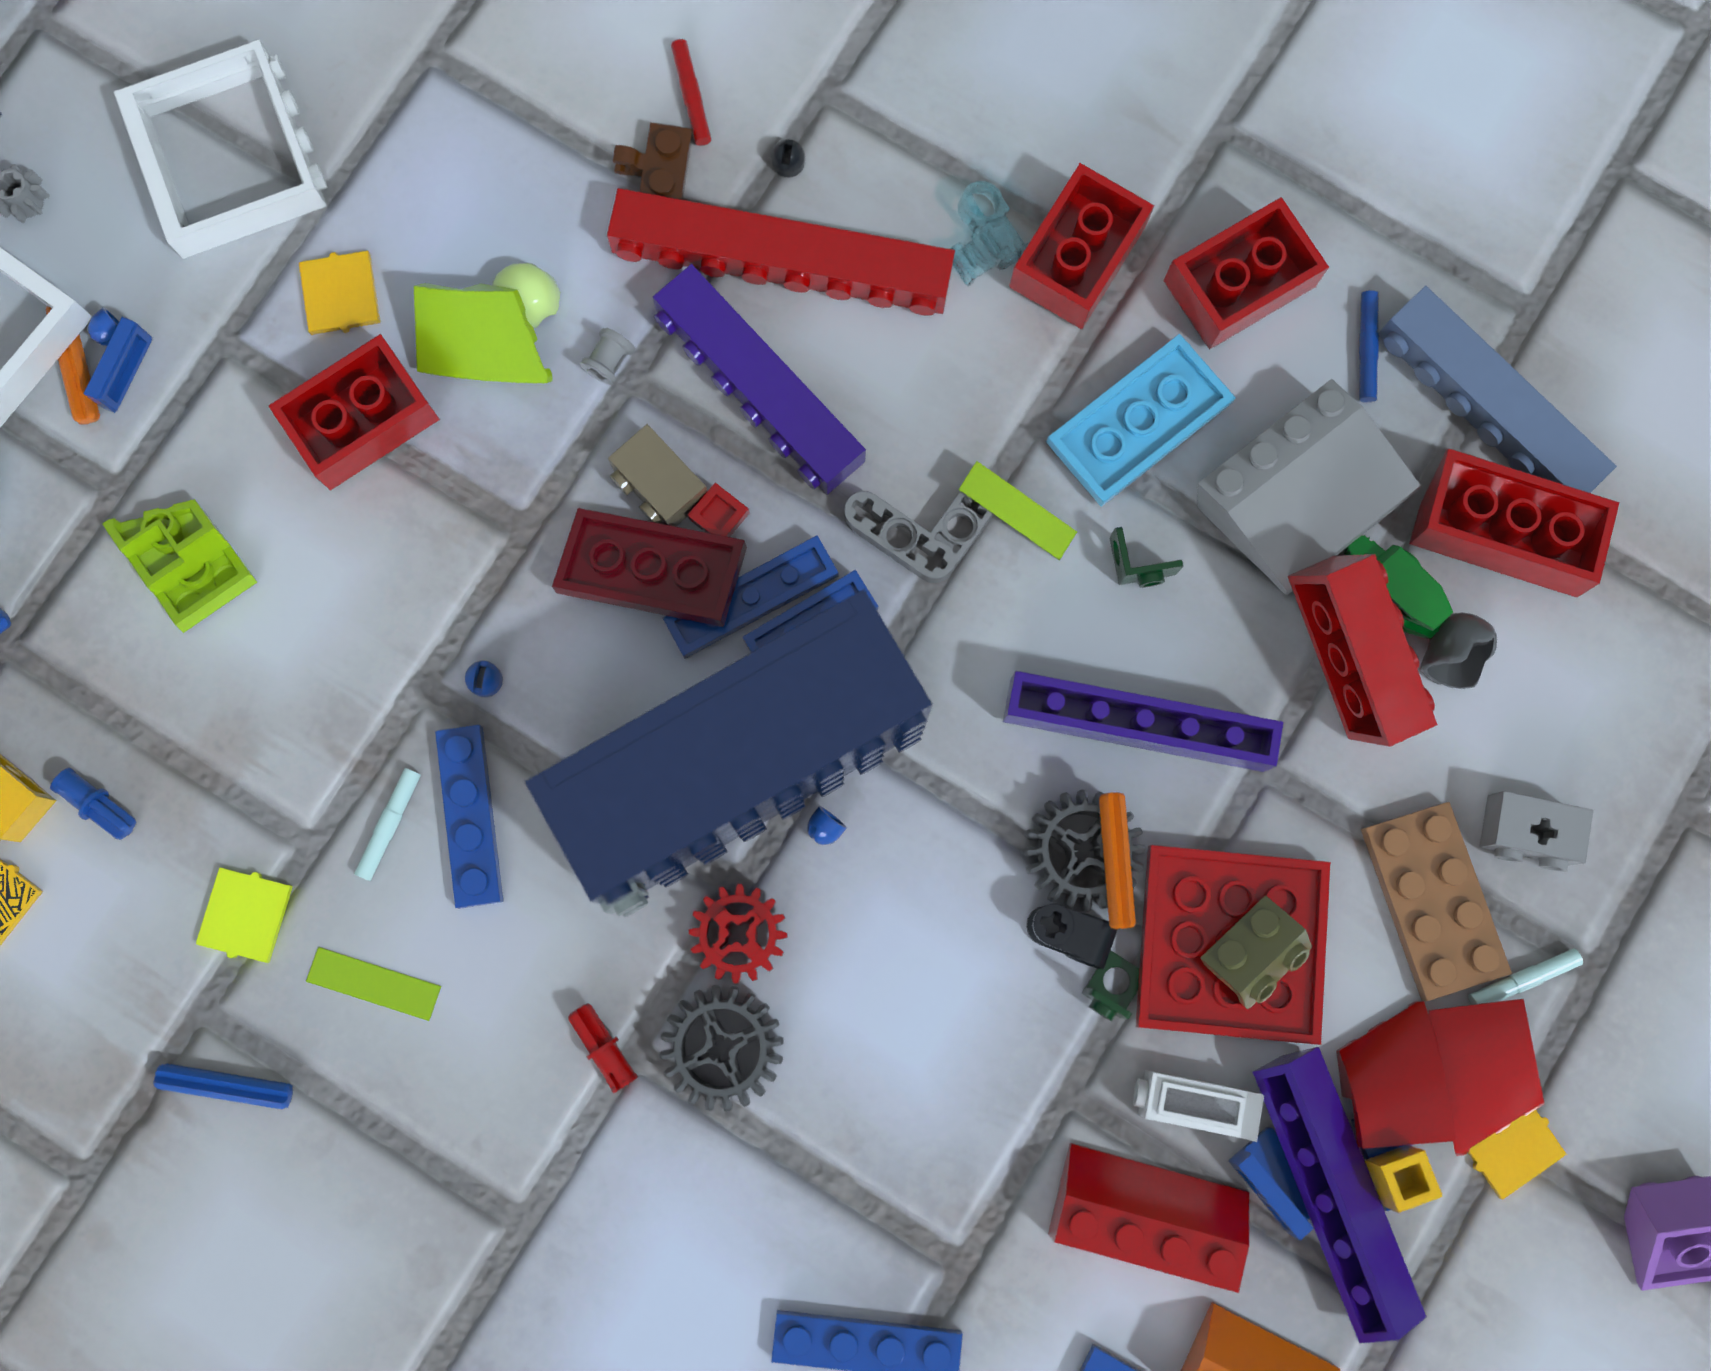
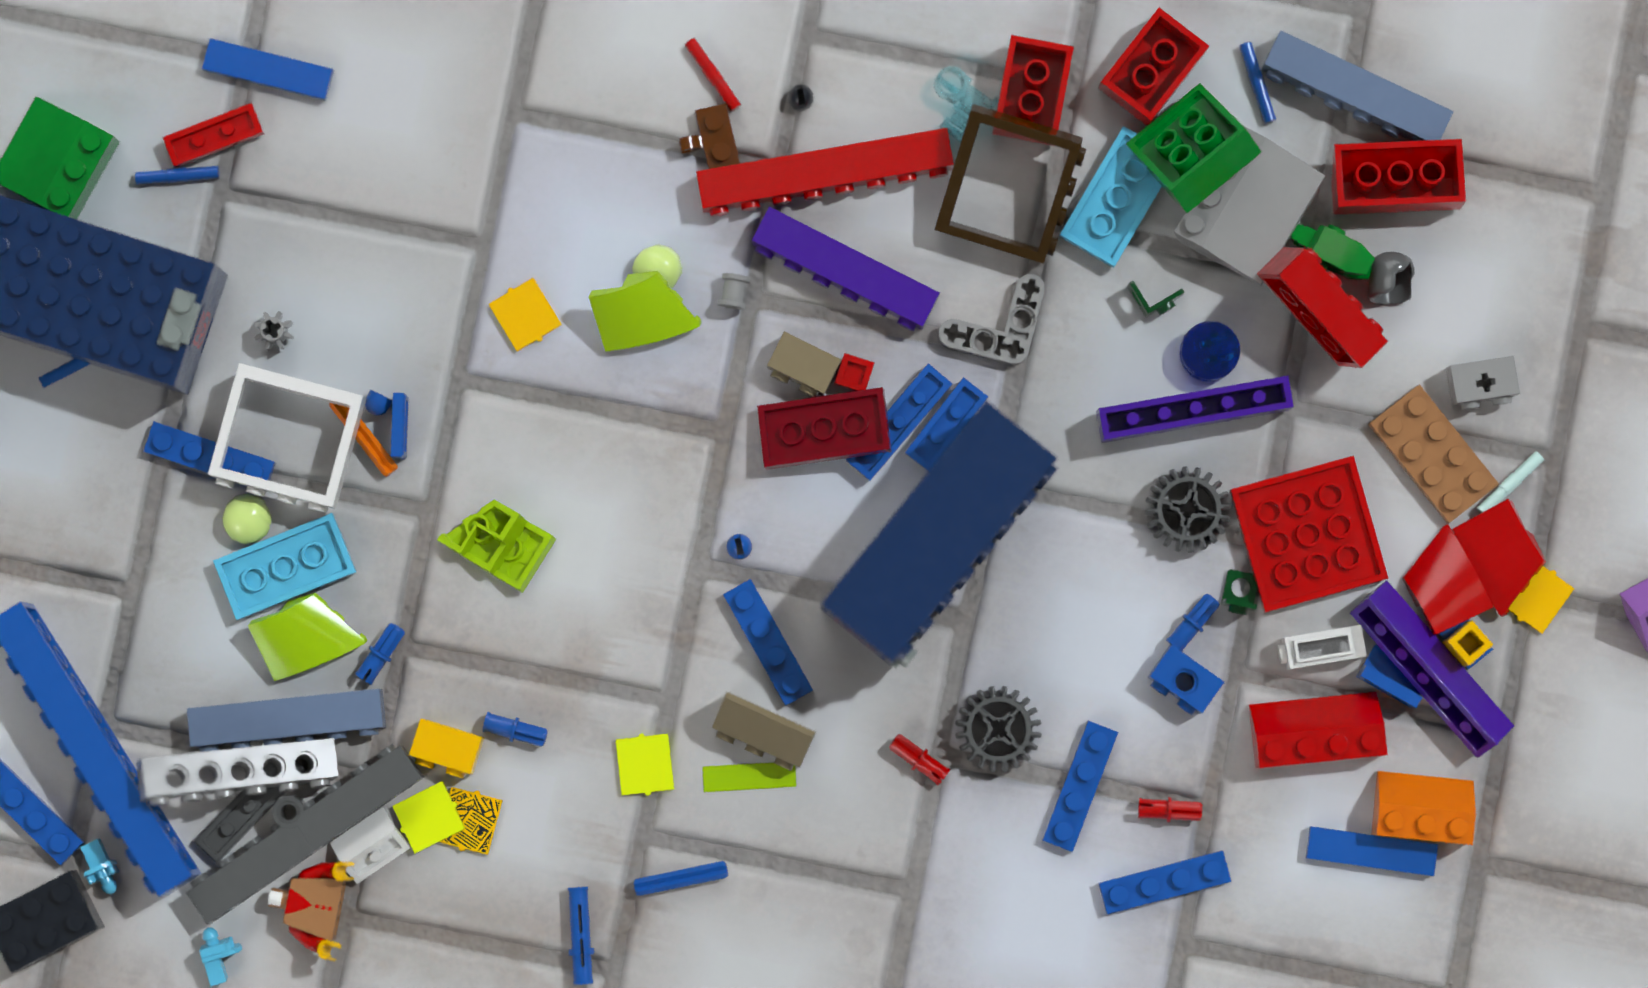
camera: 20 degrees left, 5 degrees up
(56, 1115) = (581, 974): none -> blue pin
(192, 84) = (433, 198): white window -> none
(353, 412) = (580, 398): red brick -> none
(387, 824) = (715, 668): light aqua piece -> none
(409, 928) = (762, 731): none -> dark tan slope
(724, 918) = (993, 657): red gear -> none
(802, 1168) = (1080, 786): none -> blue plate
(825, 827) = (1009, 559): blue hinge -> none
(911, 1248) = (1169, 809): none -> red axle
(950, 305) = (1066, 185): none -> dark brown window
(1017, 510) = (1058, 293): lime sticker -> none
(1020, 1094) = (1204, 683): none -> blue brick
(1036, 1004) = (1193, 622): none -> blue axle
(1079, 934) = (1205, 567): black piece -> none
(1117, 860) = (1211, 508): orange axle -> none
(1187, 656) = (1209, 351): none -> clear blue head
(1258, 952) = (1325, 533): olive bracket -> none
(1267, 385) = (1194, 147): none -> green slope

